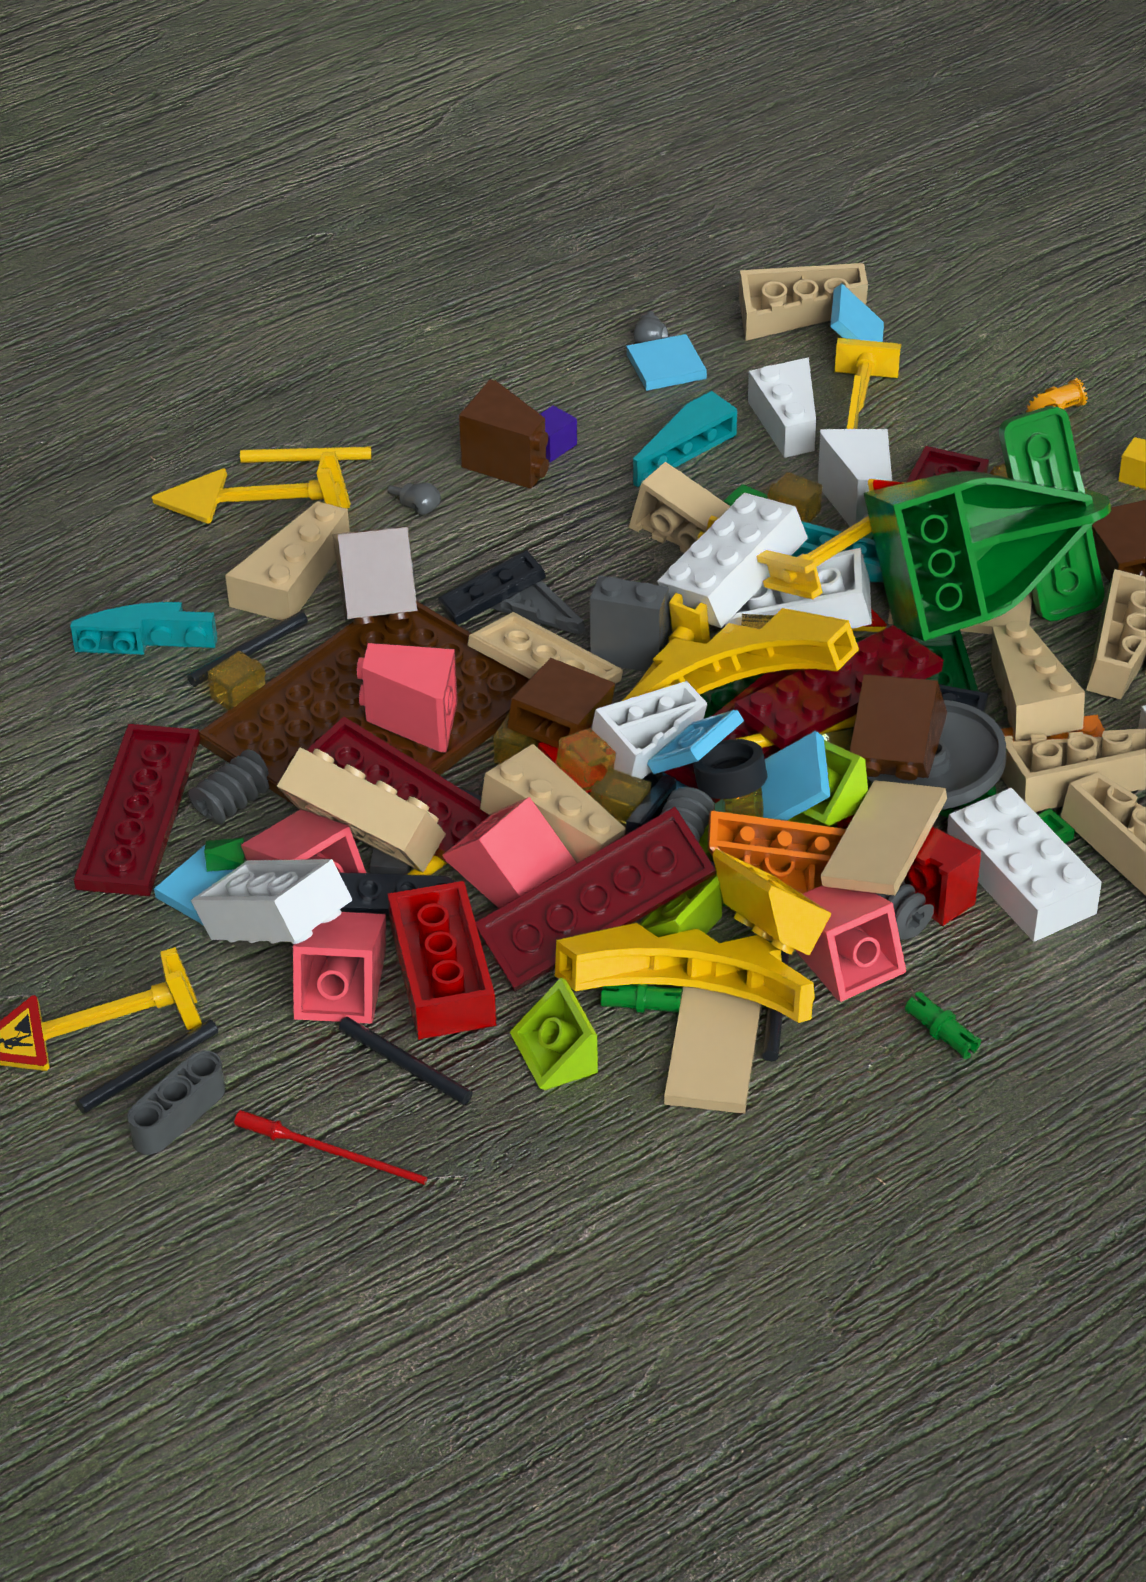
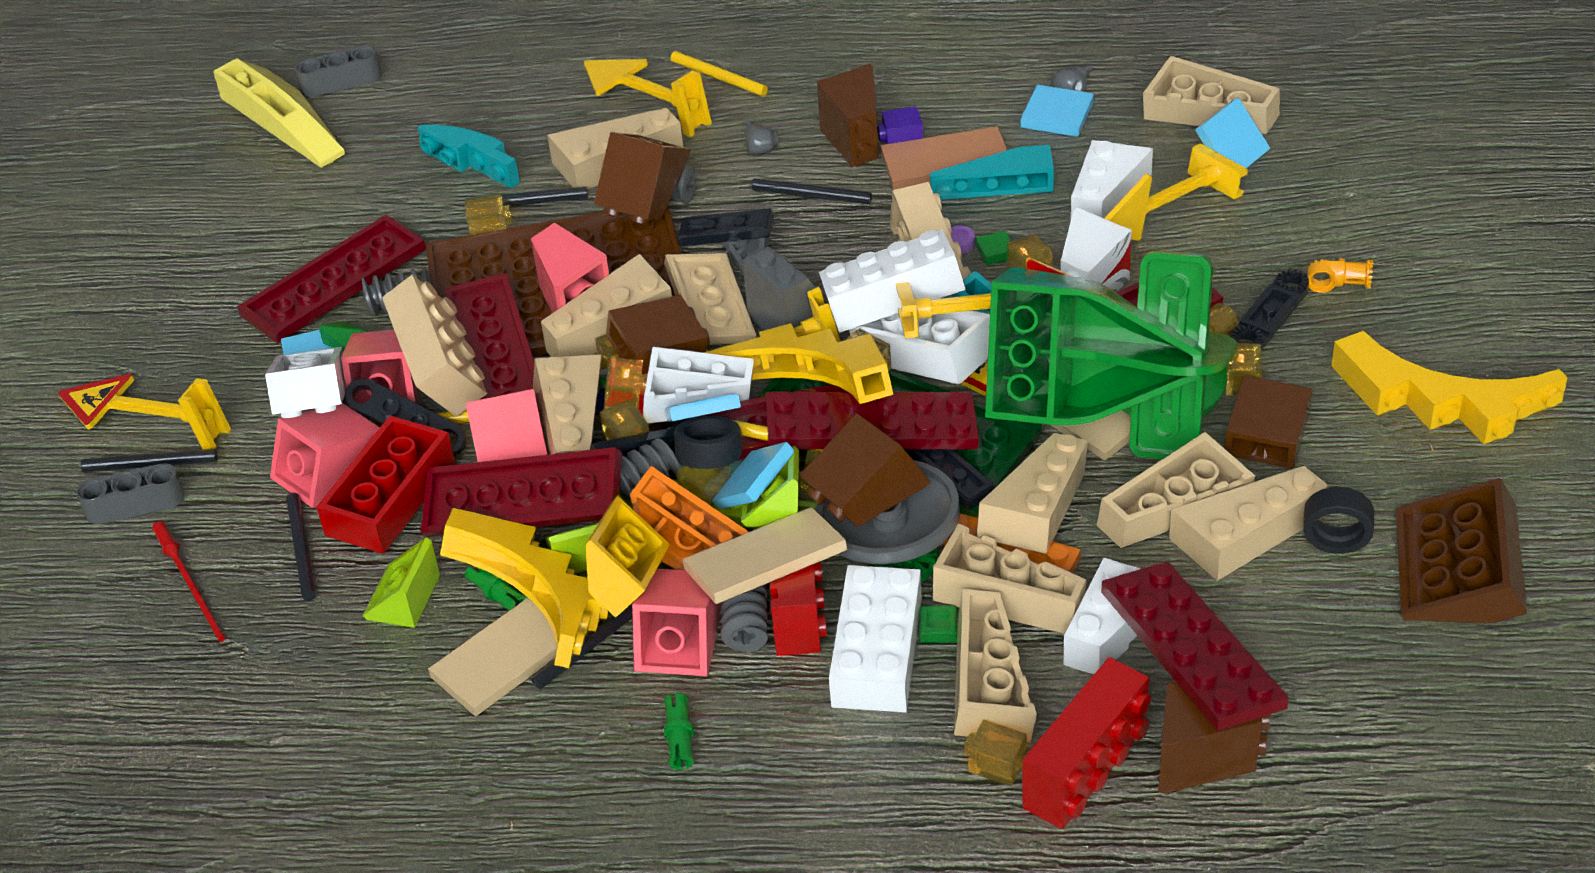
camera: 40 degrees right, 0 degrees up
(478, 706) = (578, 323): none -> tan wedge
(522, 524) = (812, 191): none -> black bar
(608, 444) = (913, 160): none -> nougat tile

